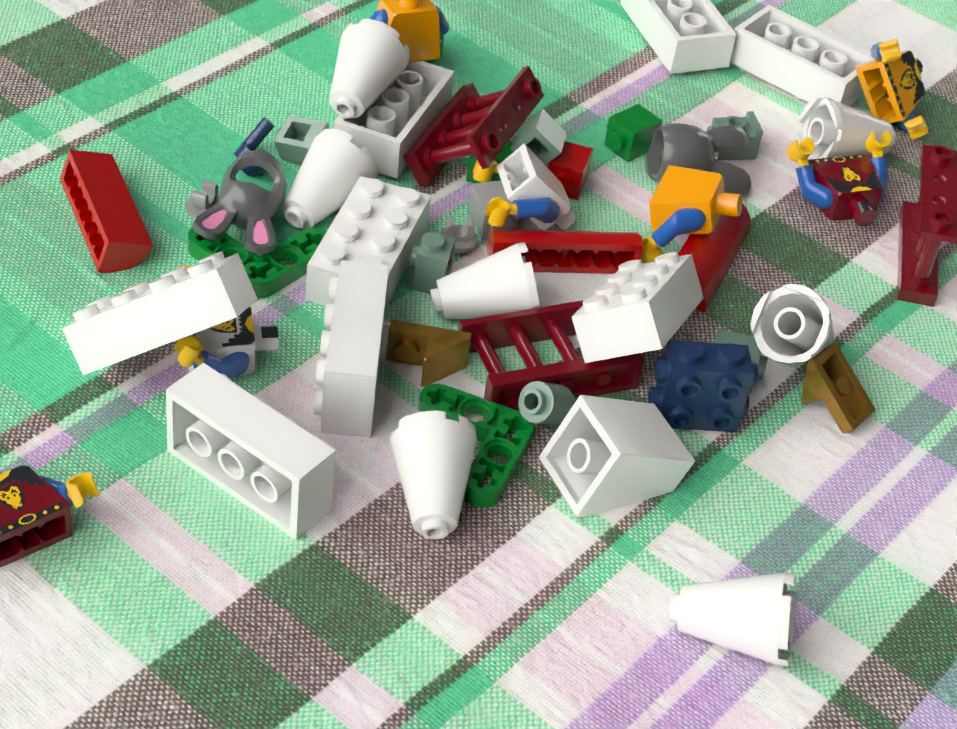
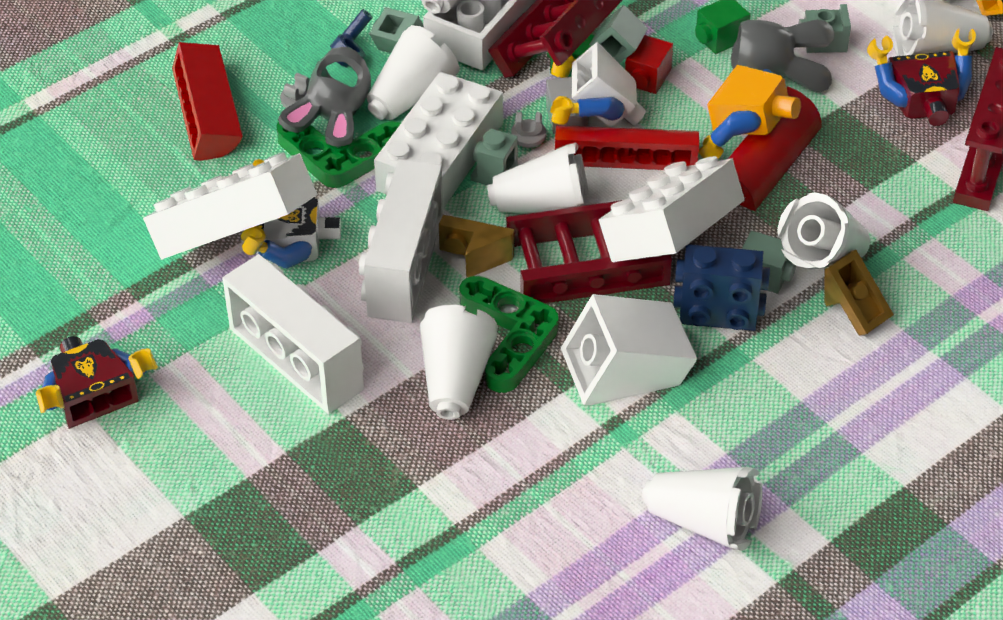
camera: 15 degrees right, 5 degrees up
(545, 403) = (569, 297): sand green brick -> none

